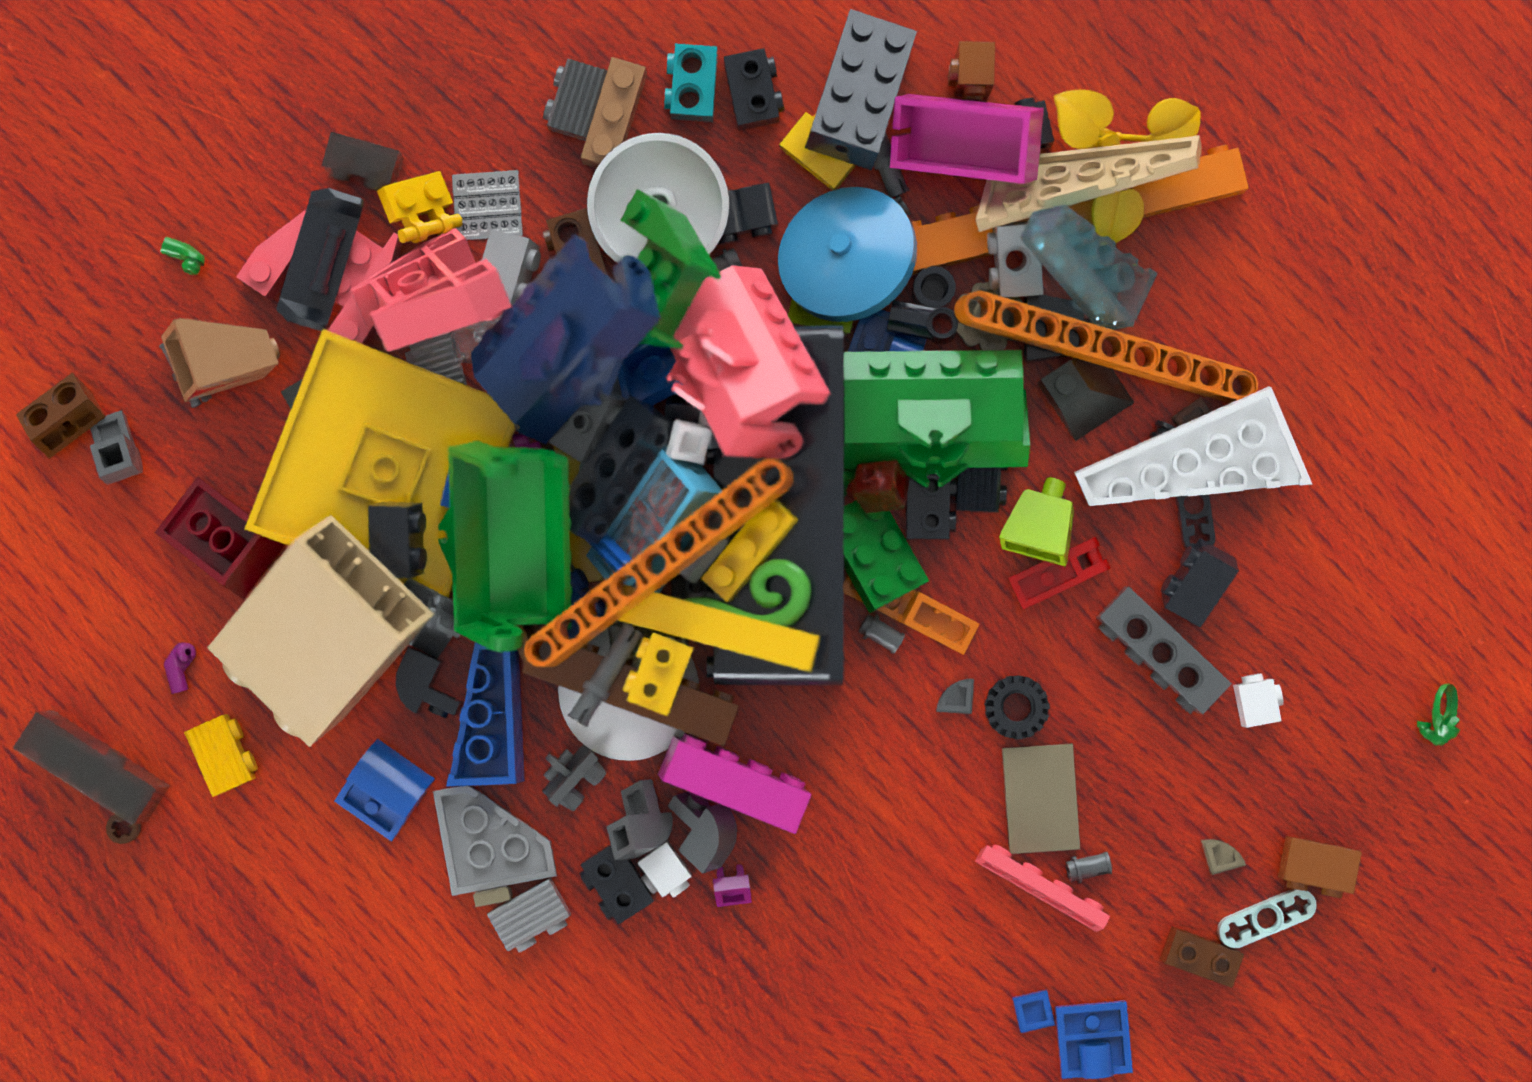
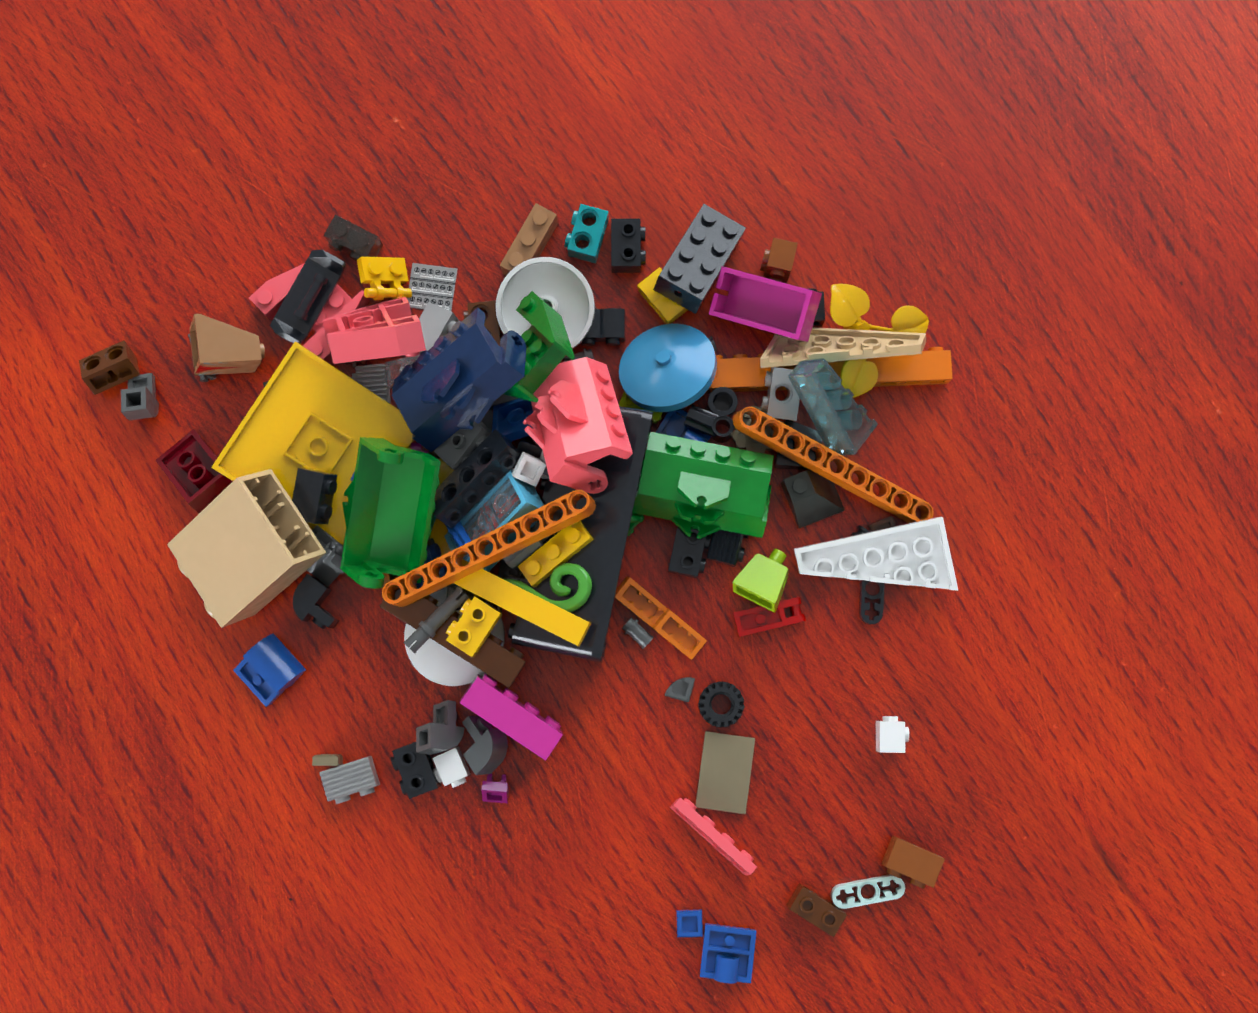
camera: 15 degrees right, 5 degrees down
(91, 766) = (70, 611): clear smoke brick -> none
(125, 838) = (84, 666): reddish brown bush -> none
(176, 664) = (149, 553): magenta arm -> none
(192, 258) = (222, 280): green arm -> none
(221, 754) = (163, 621): yellow brick -> none
(487, 843) = (332, 722): light grey plate -> none
(491, 722) = (352, 637): blue wedge -> none
(567, 772) = (410, 681): dark grey hips -> none
(575, 99) = (504, 228): dark grey brick -> none
(878, 557) = (645, 576): green plate -> none
(880, 486) = (657, 529): clear red brick -> none
(891, 177) = (708, 321): dark grey pin -> none
(1088, 867) = (748, 828): dark grey pin -> none
(1199, 582) = (866, 642): black brick -> none
(1208, 682) = (859, 713): dark grey brick -> none
(1221, 856) = (844, 840): dark tan tile -> none
(1444, 724) = (1019, 779): green piece -> none

